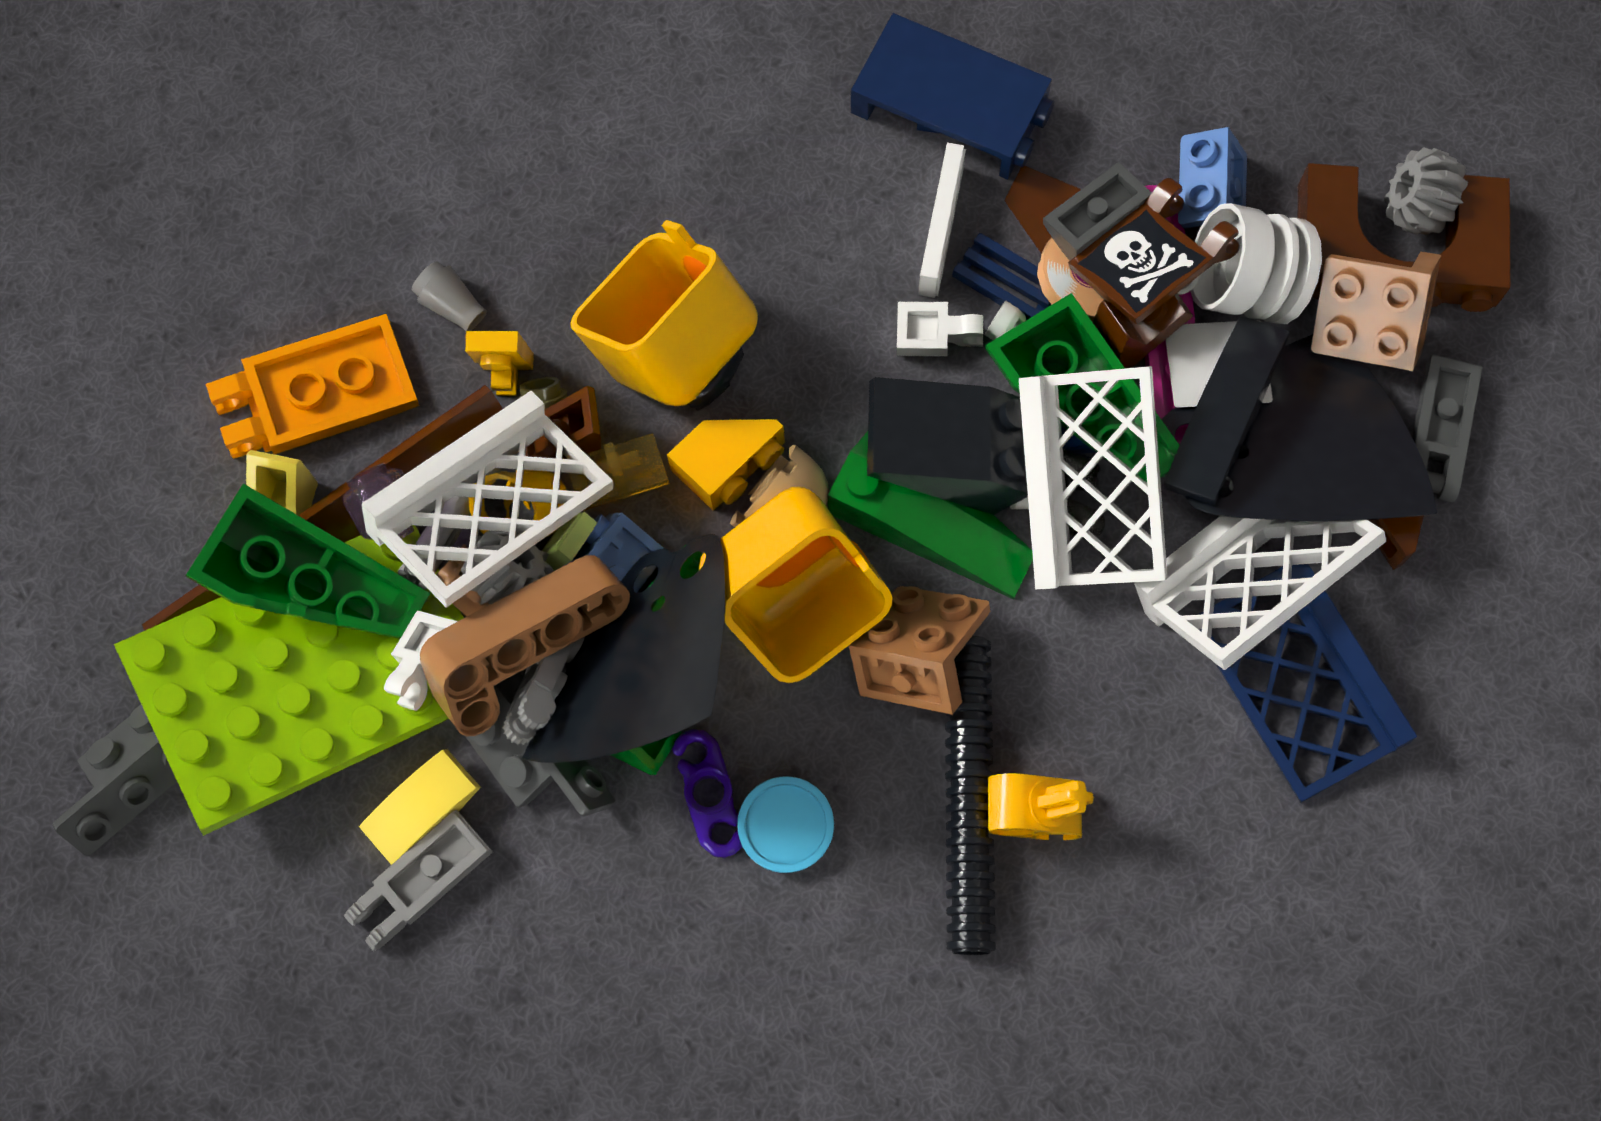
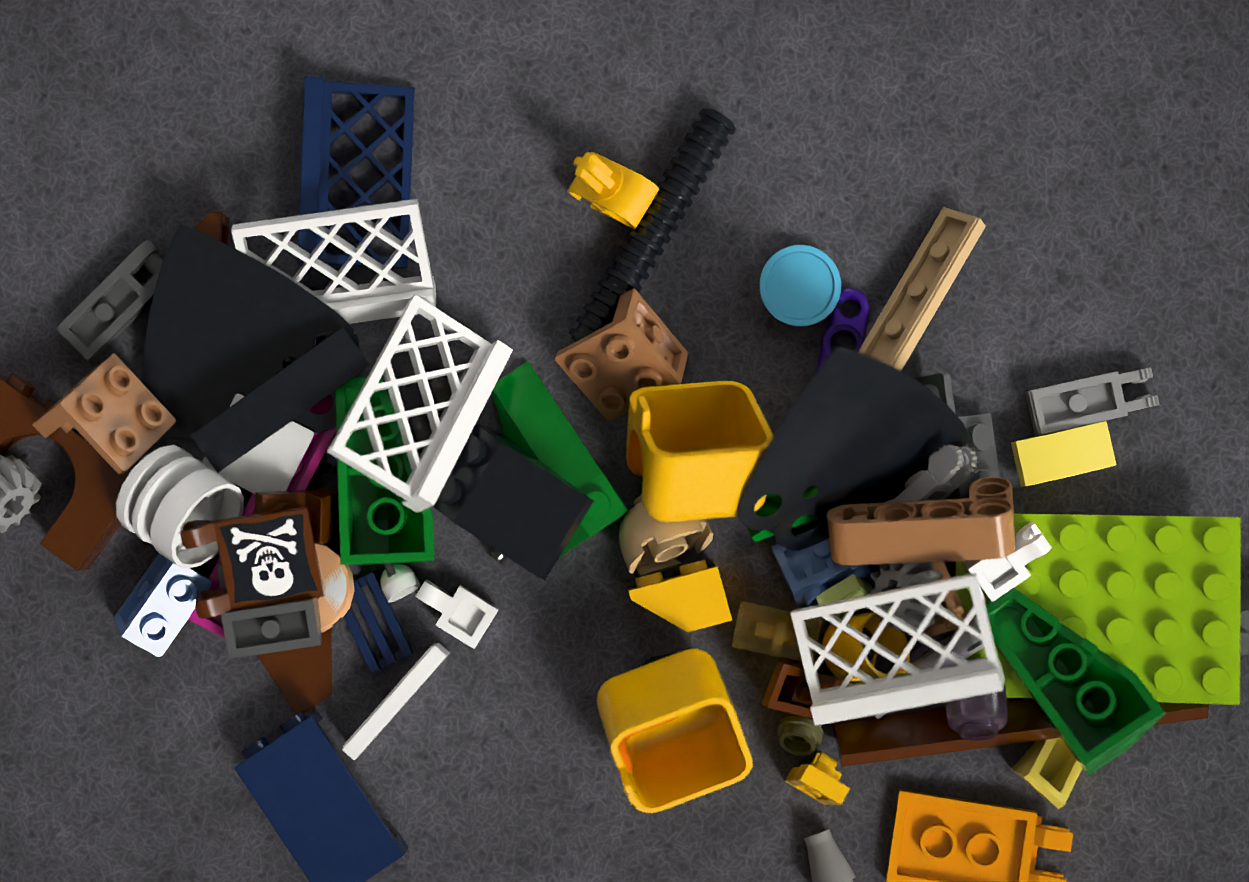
camera: 150 degrees left, 15 degrees up
(658, 868) = (922, 287): none -> tan tile

